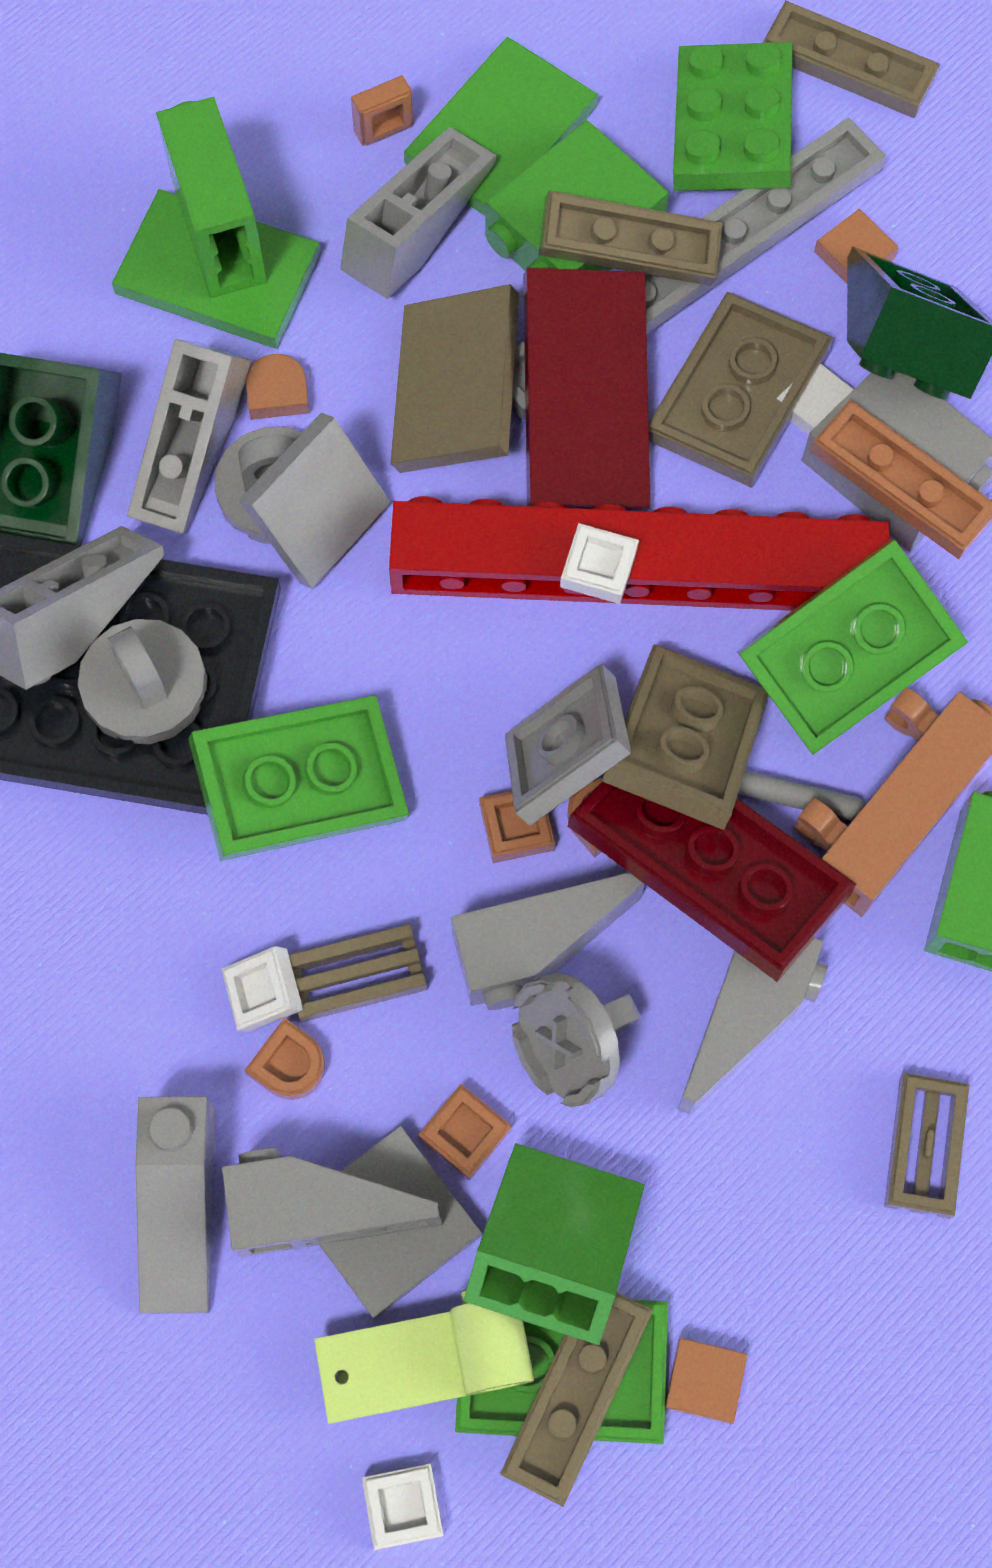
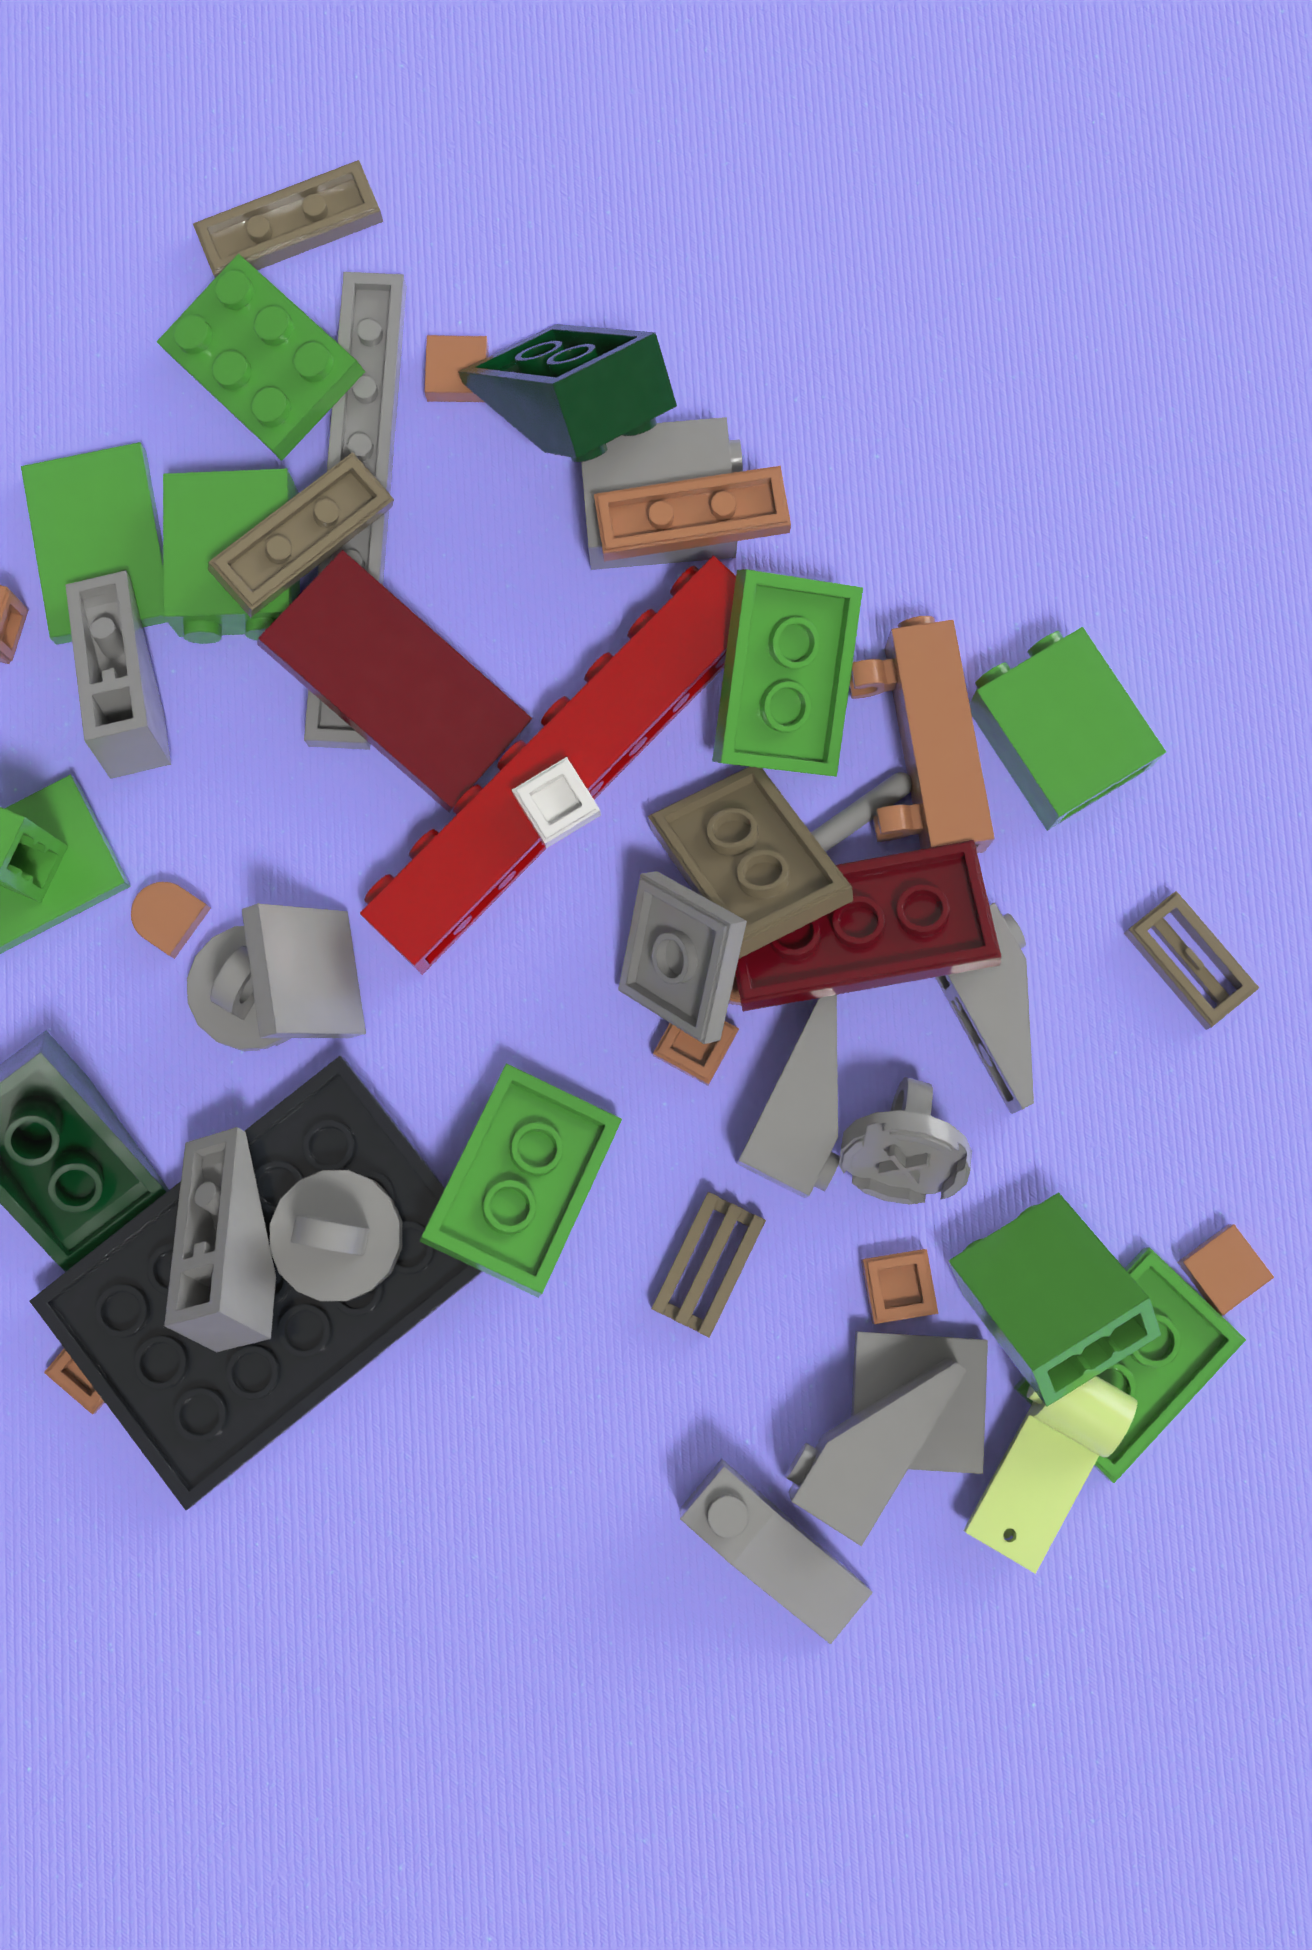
camera: 45 degrees left, 10 degrees up
(187, 433) = (146, 1021): light grey slope -> none
(262, 989) = (662, 1347): white tile -> none
(288, 1063) = (735, 1373): nougat tile -> none
(402, 1506) = (1133, 1565): white tile -> none
(455, 379) = (292, 772): dark tan tile -> none
(574, 1404) = (1175, 1392): dark tan tile -> none
(726, 392) = (493, 562): dark tan tile -> none
(818, 400) = (555, 514): white tile -> none

